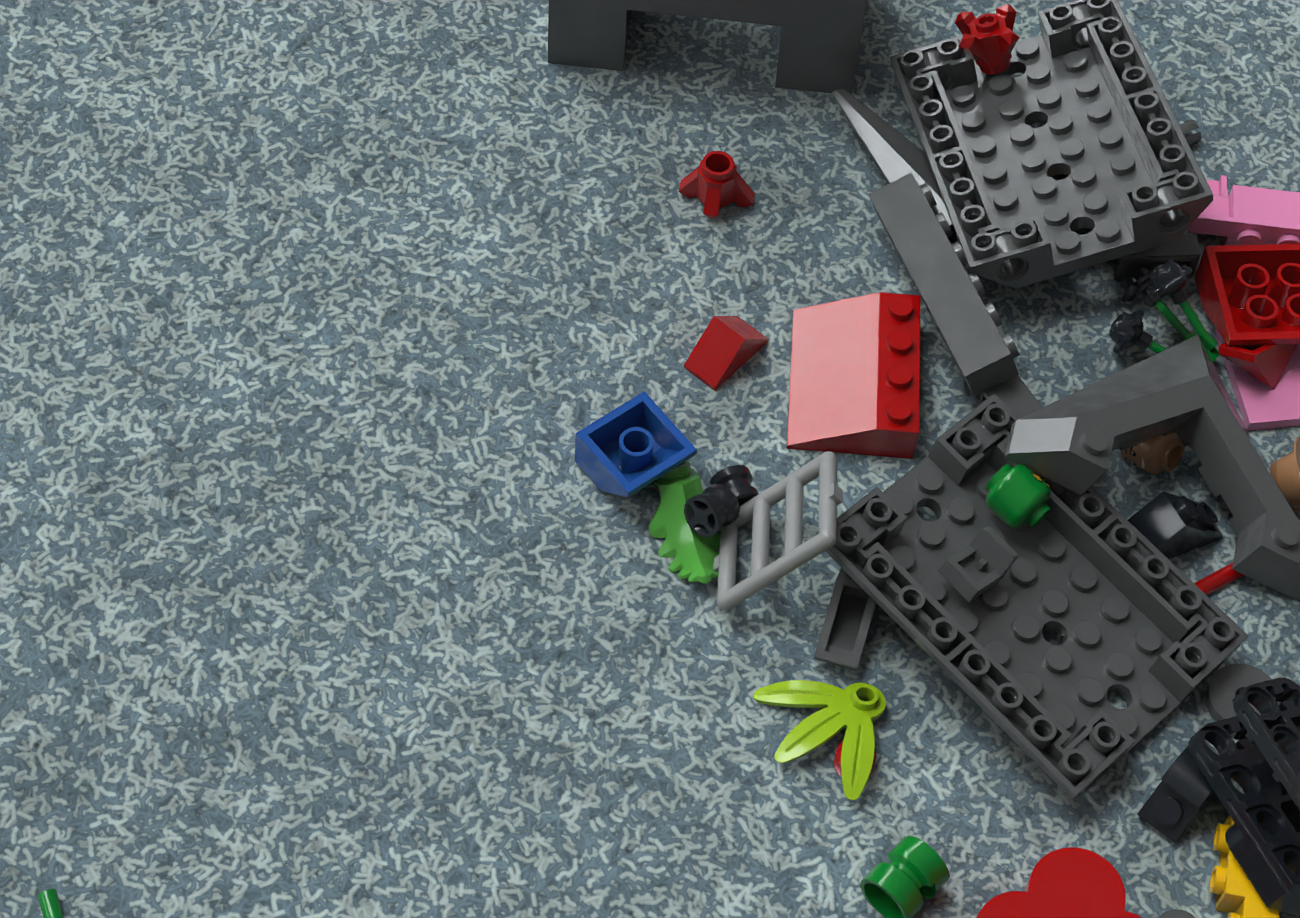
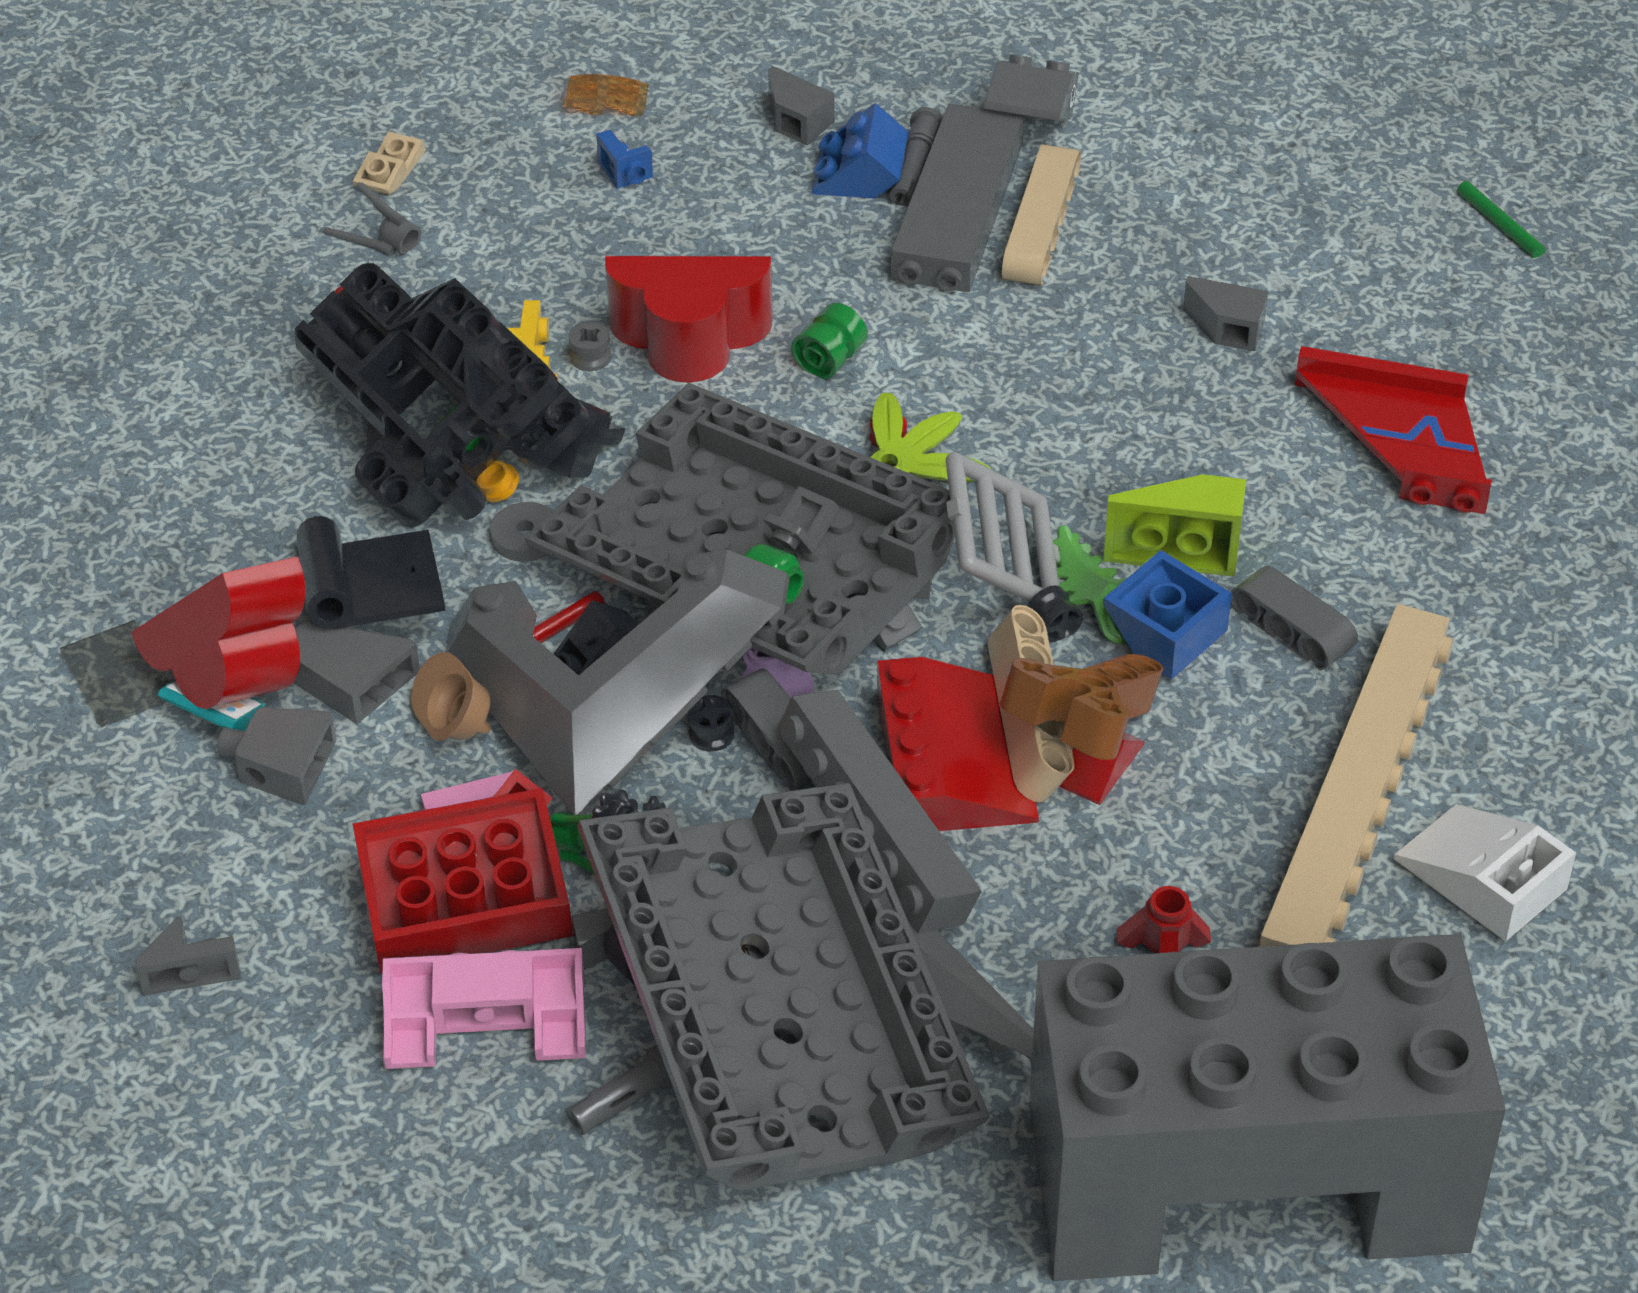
camera: 175 degrees right, 10 degrees down
(311, 654) = (1408, 420): none -> red piece
(440, 184) = (1490, 866): none -> white slope
(443, 843) = (1226, 312): none -> dark grey slope
(512, 281) = (1358, 780): none -> tan brick
(514, 448) = (1295, 616): none -> dark grey beam
(593, 538) = (1186, 518): none -> lime slope
(711, 510) = (1073, 569): black wheel -> none
(764, 340) = (1089, 700): none -> dark orange beam
(781, 393) = (1035, 752): none -> tan beam
(989, 38) = (865, 1093): red rock -> none

